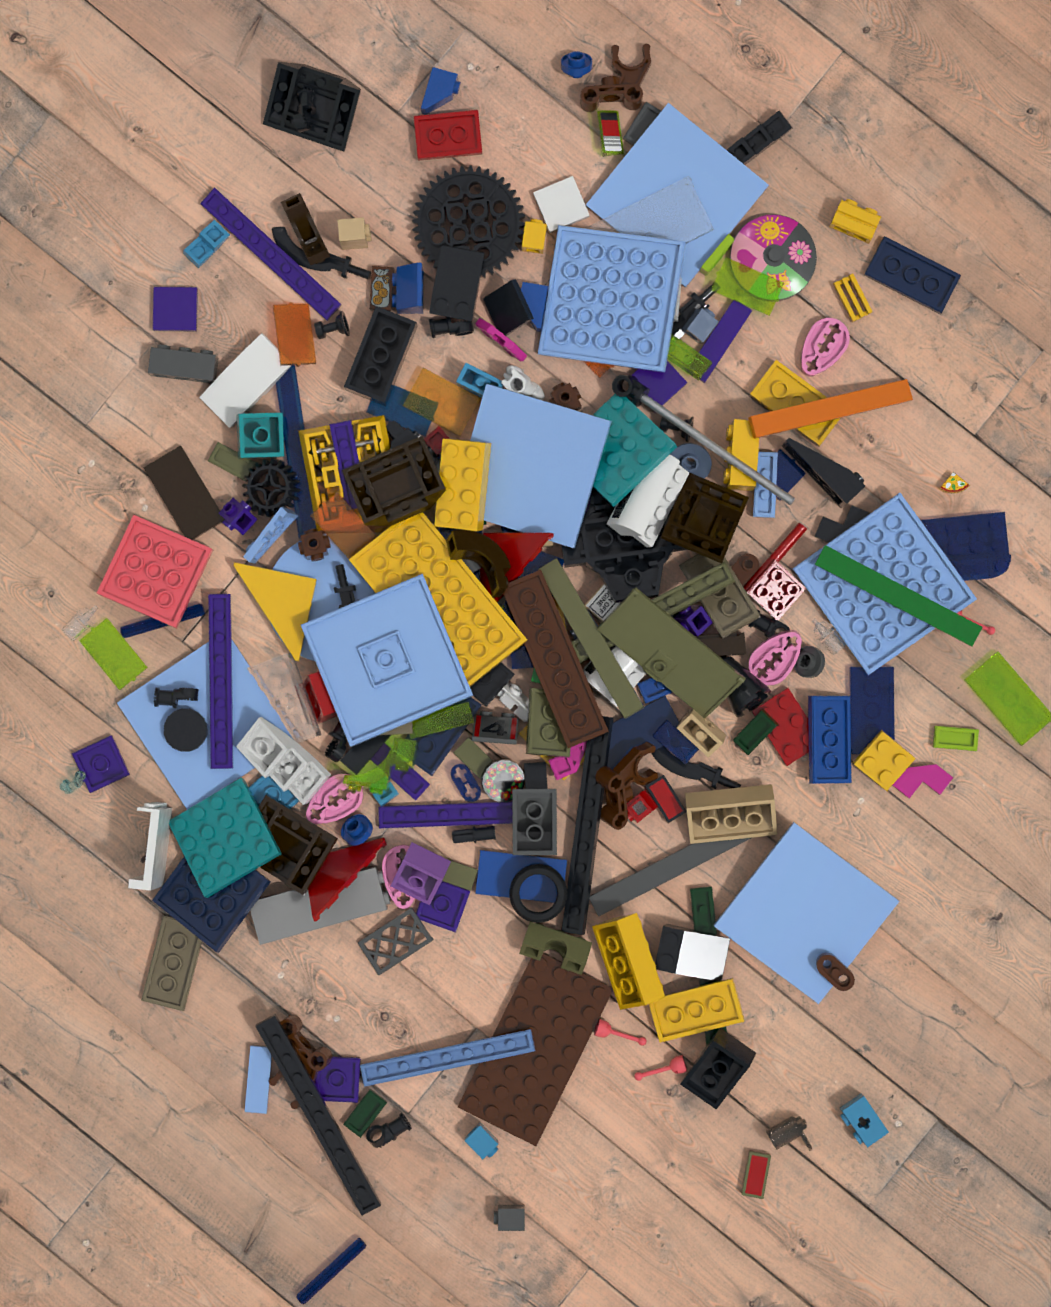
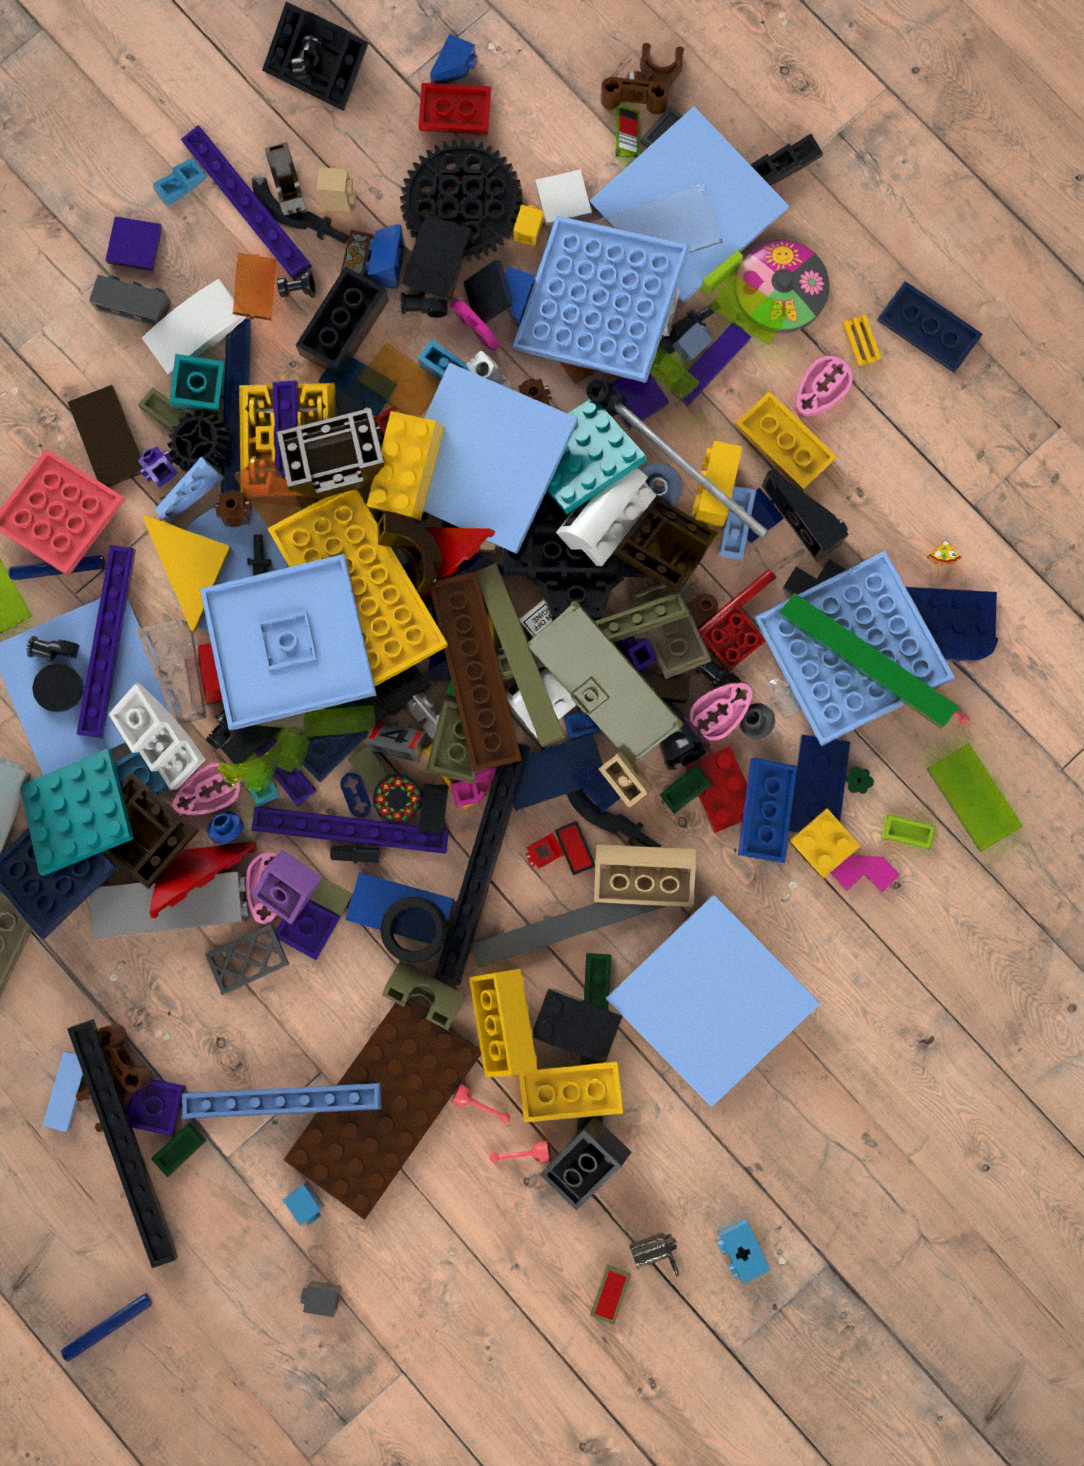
camera: 10 degrees right, 5 degrees down
(389, 1131) = (200, 1174): black connector -> none
(534, 821) = (423, 848): dark grey slope -> none
(576, 64) = (602, 56): blue plate -> none
(618, 782) = (523, 821): reddish brown piece -> none
(665, 425) = (640, 441): black piece -> none
(830, 408) = (820, 448): orange tile -> none
(834, 971) = (734, 1072): reddish brown plate -> none
(855, 221) = (876, 259): yellow brick -> none
(911, 699) = (865, 780): none -> dark green plant

